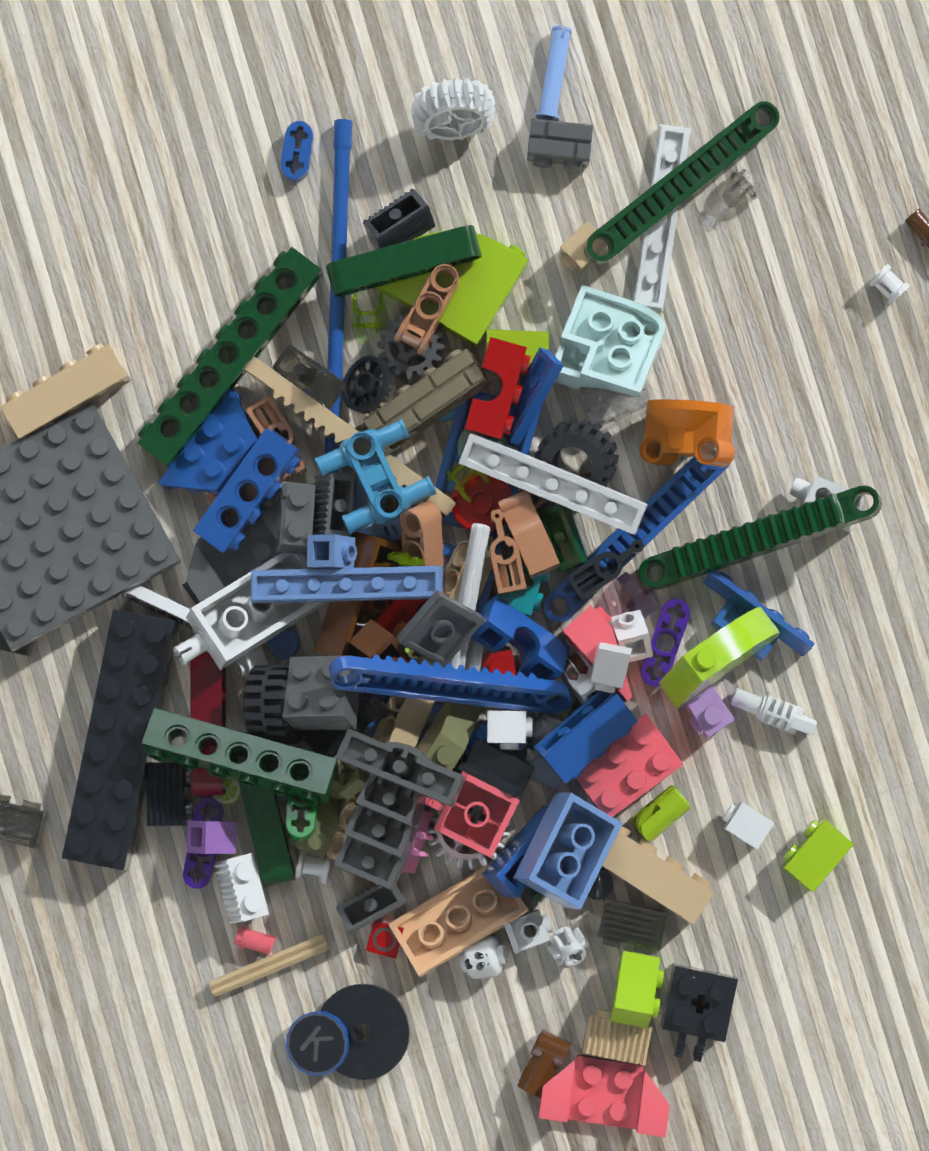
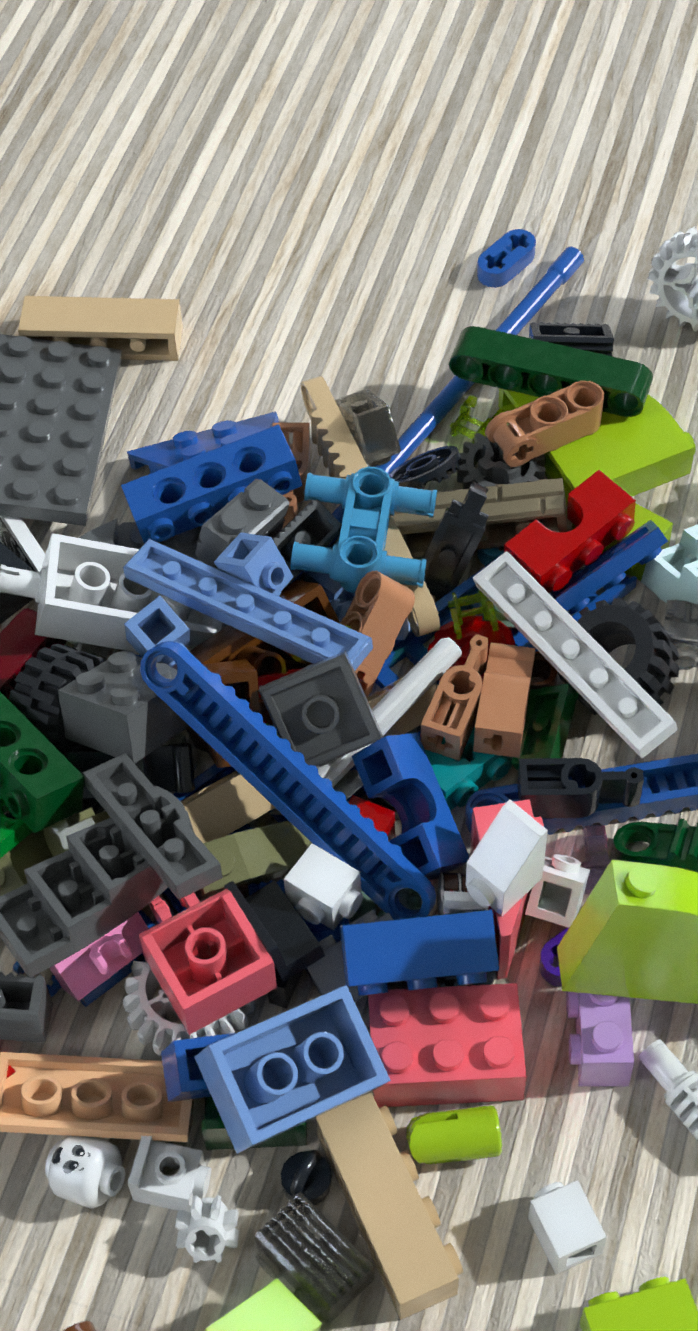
camera: 30 degrees right, 30 degrees down
(305, 277) = (363, 361): dark green brick -> none
(306, 635) = (156, 625): none -> medium blue brick
(426, 438) = (455, 541): none -> black hinge

